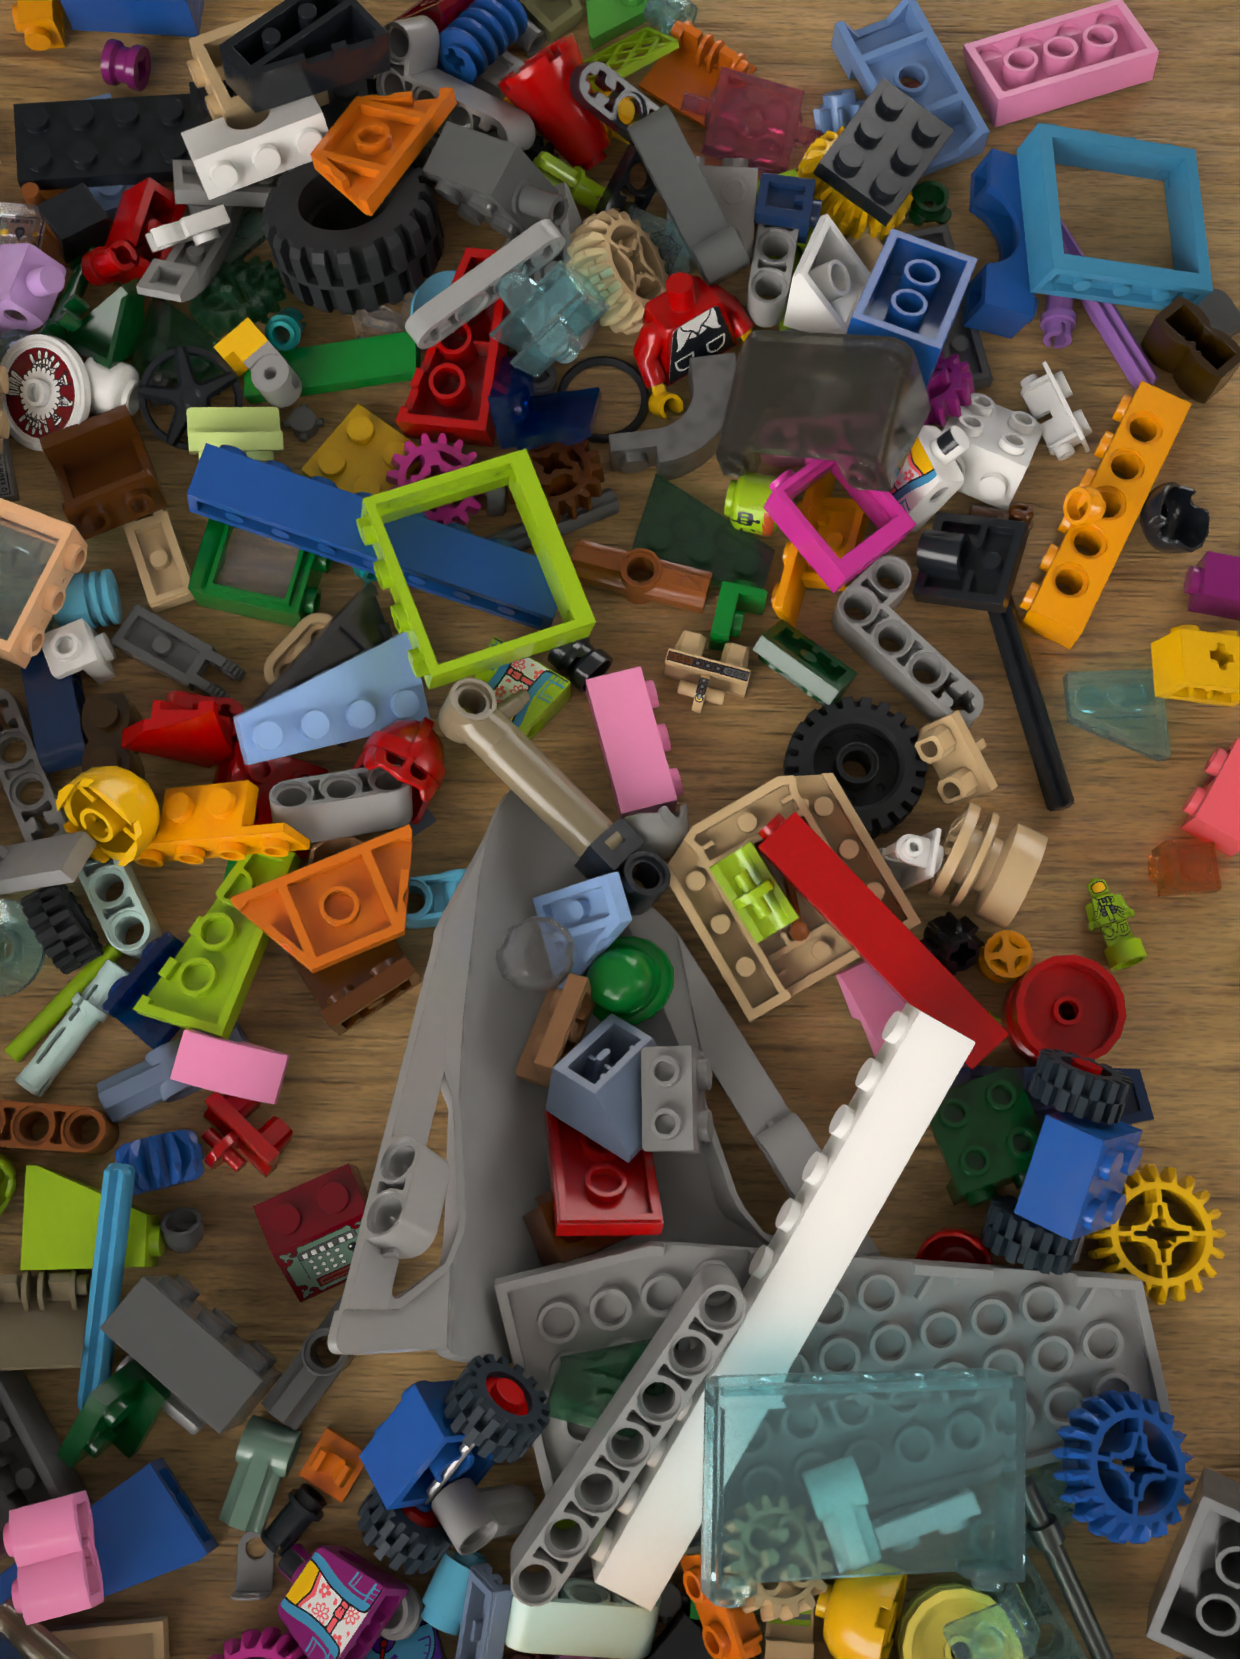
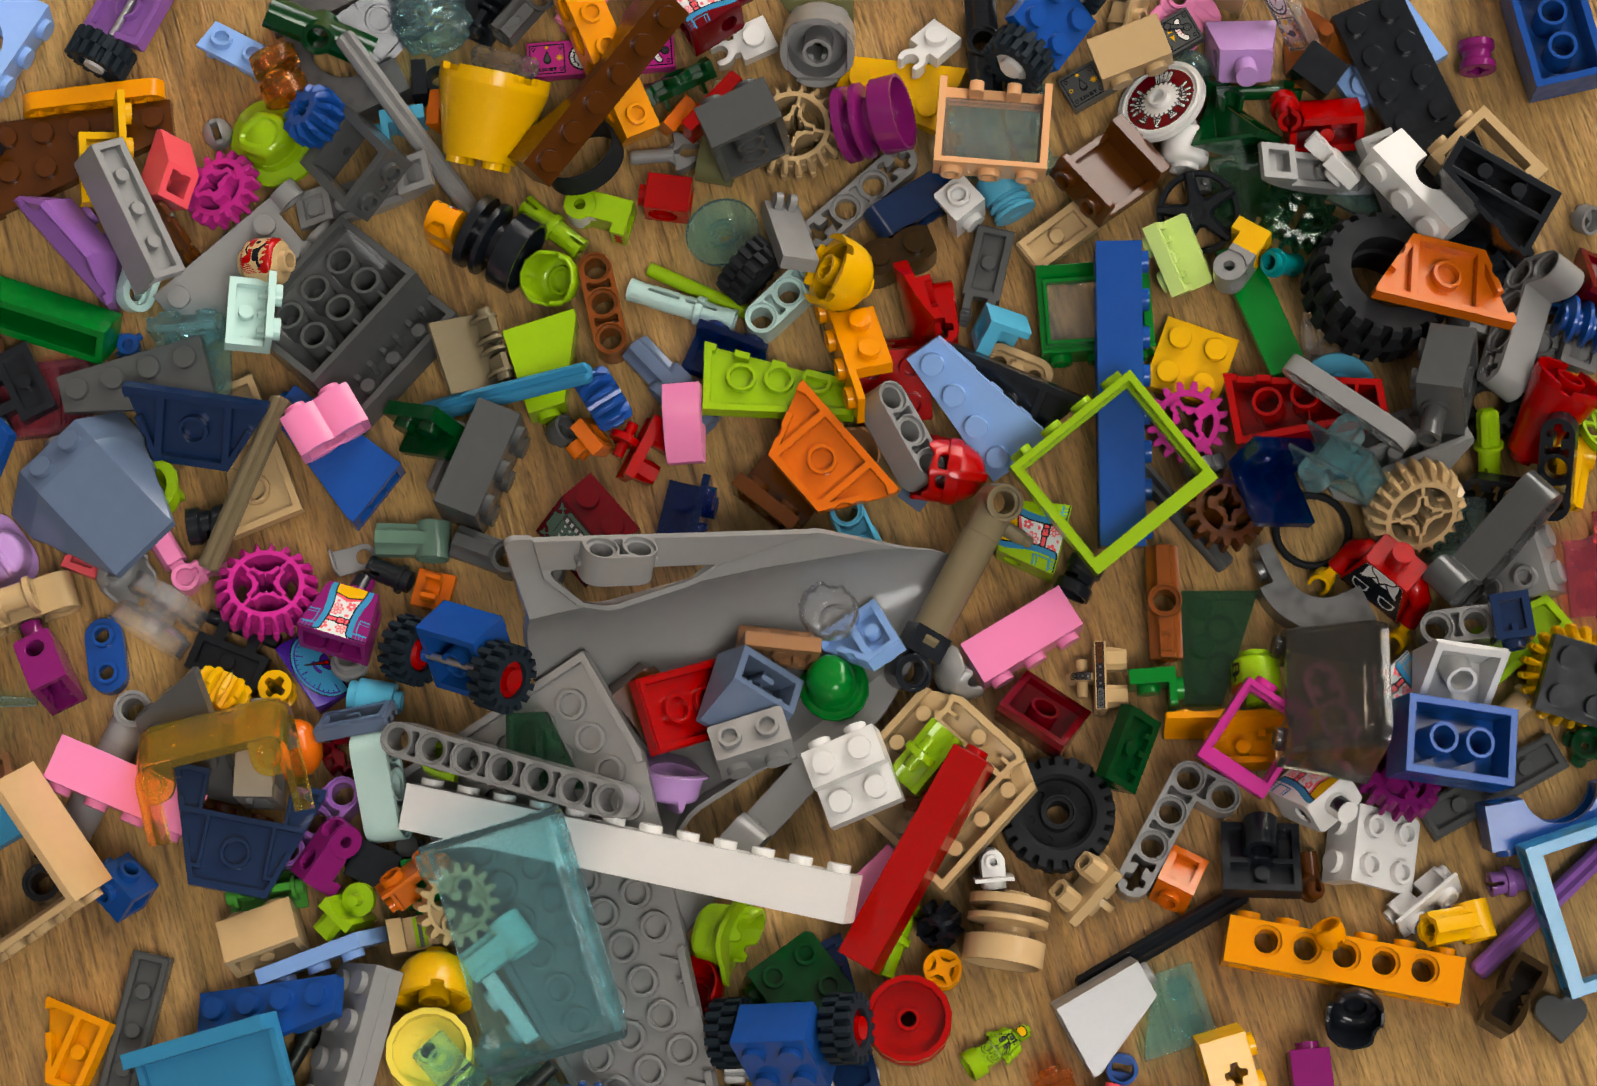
camera: 80 degrees right, 0 degrees up
(208, 1197) = (589, 441): none -> orange tile
(245, 656) = (998, 326): none -> medium azure panel
(303, 423) = (1210, 304): dark grey piece -> none
(347, 1101) = (688, 507): none -> clear blue bracket
(479, 1514) = (426, 692): light grey piece -> none
(694, 1211) = (675, 780): none -> lavender piece
(731, 751) = (1041, 715): none -> dark red slope
(751, 987) = (852, 774): none -> white plate
(911, 1216) = (725, 932): none -> lime hat
(971, 654) = (1178, 880): none -> orange bracket
(1097, 377) = (1464, 923): none -> yellow piece
(1106, 781) = (1105, 1011): none -> slope
(1177, 791) = (1120, 1076): none -> blue hinge

